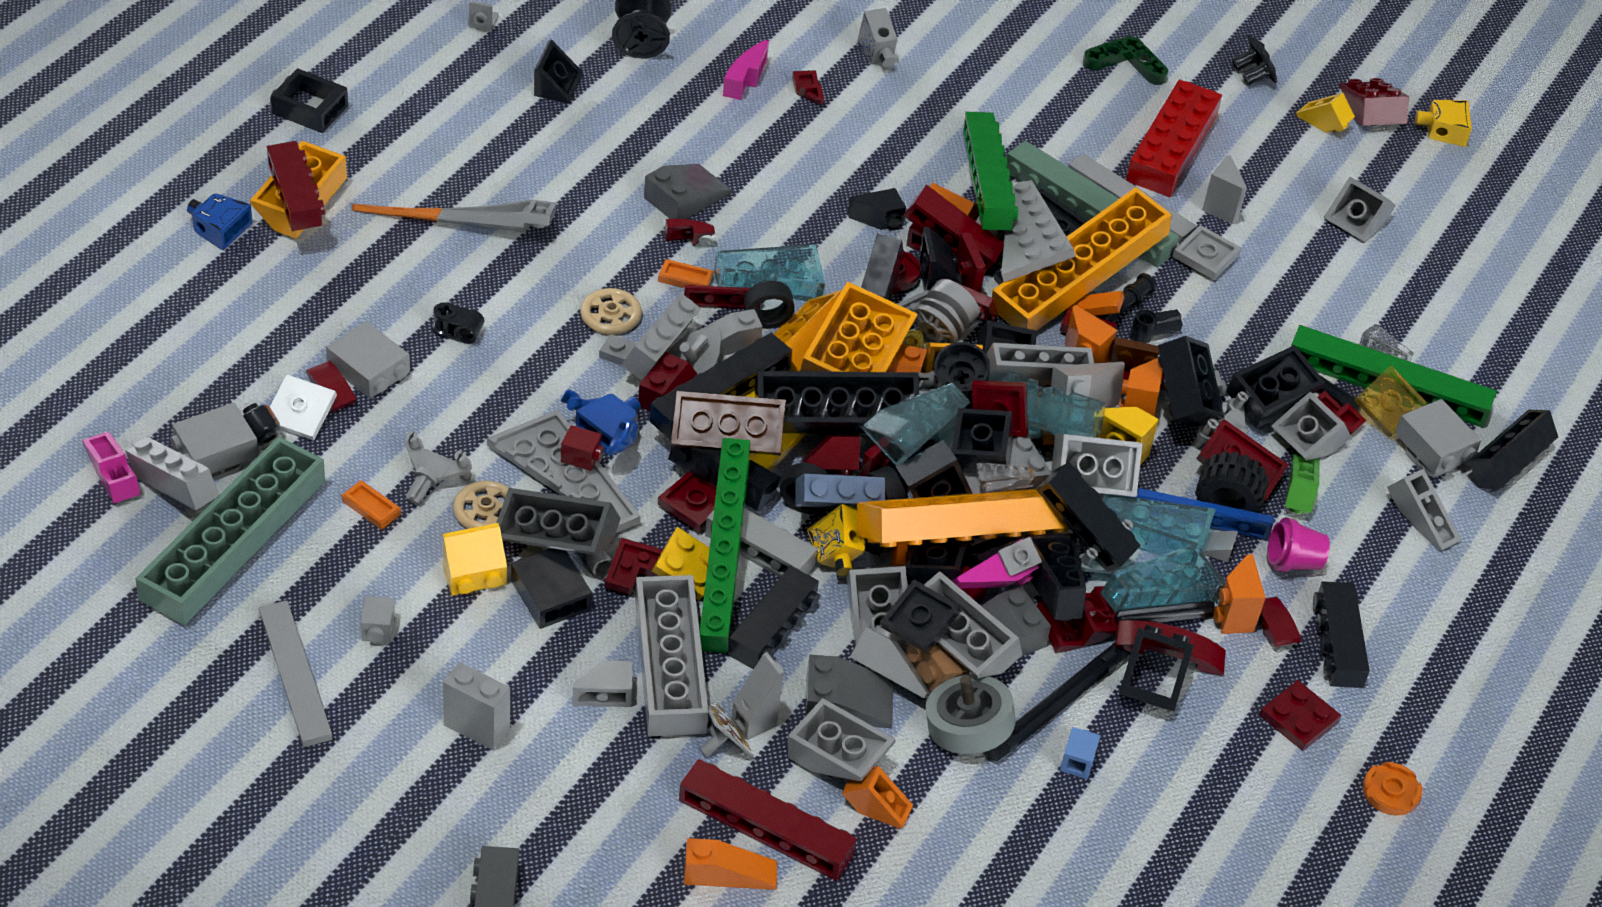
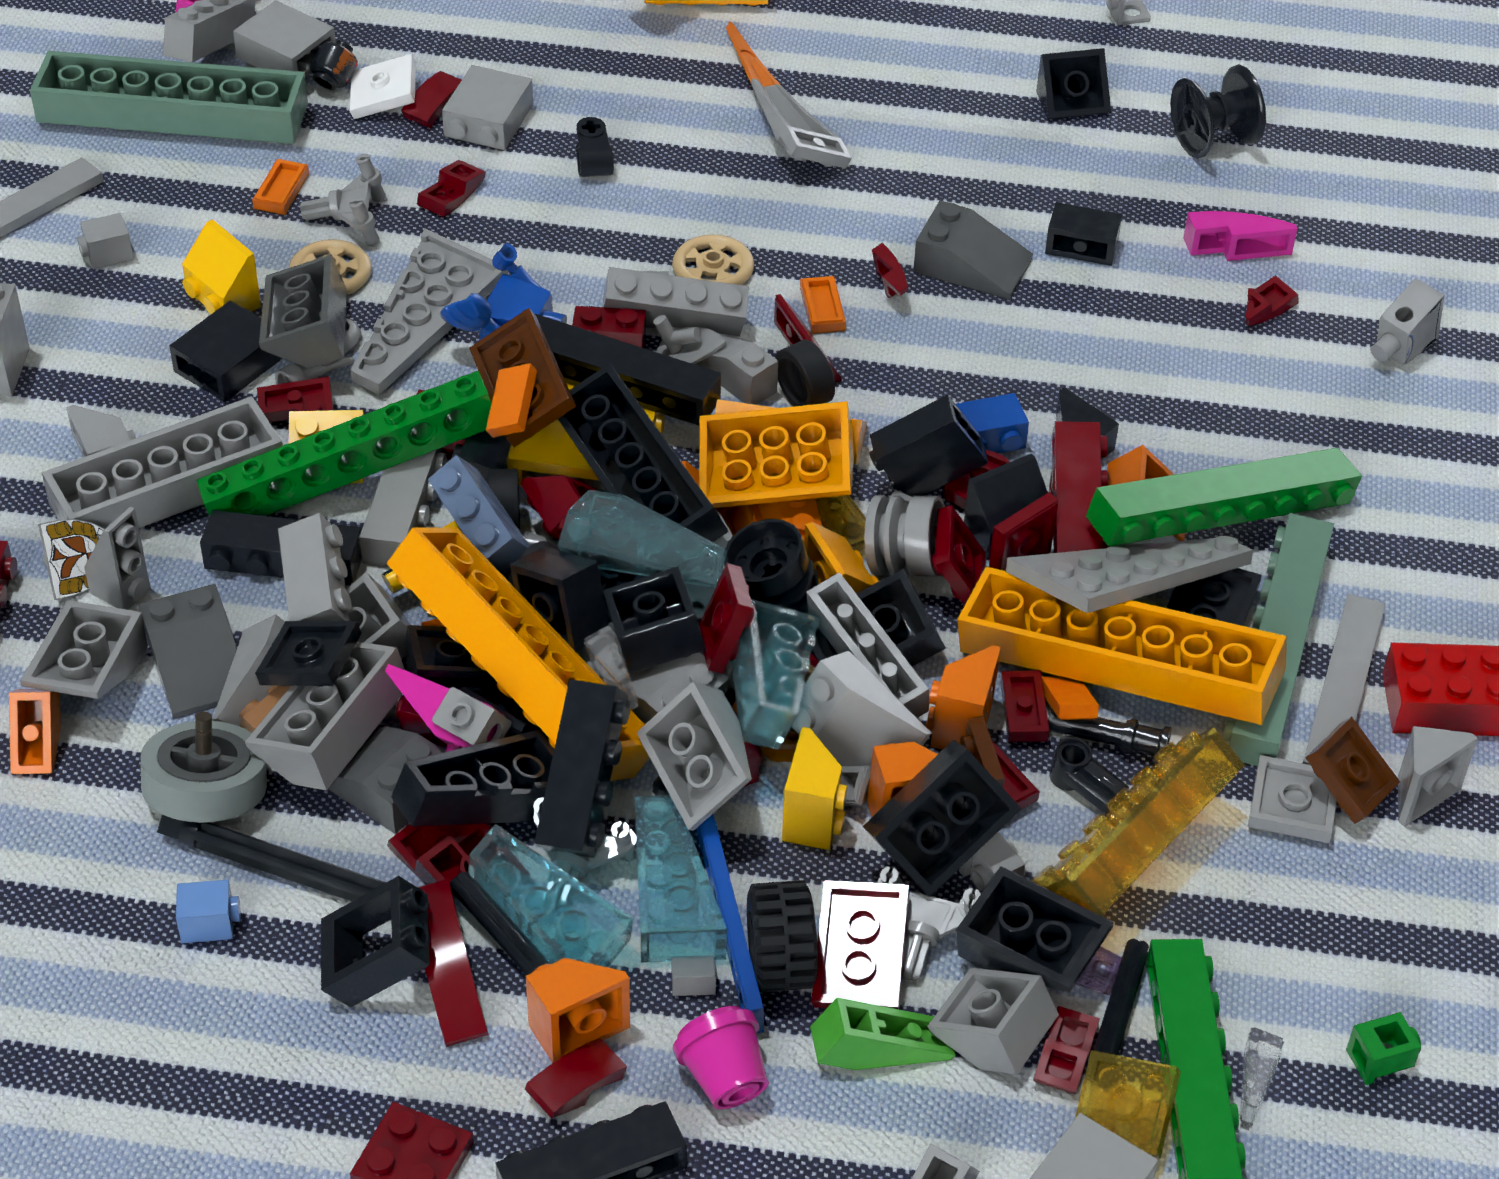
camera: 70 degrees right, 0 degrees up
(440, 413) = (453, 188): none -> dark red slope
(581, 448) = (439, 290): dark red brick -> none
(702, 132) = (1083, 233): none -> black brick
(762, 435) = (511, 400): none -> orange tile
(792, 265) = (873, 364): clear light blue wedge -> none
(840, 596) = (314, 570): none -> light grey brick
(853, 247) = (998, 421): none -> blue brick
(1207, 218) = (1352, 770): none -> reddish brown plate
(1215, 311) = (1142, 821): none -> clear yellow brick
(1386, 294) = (1383, 1047): none -> green brick

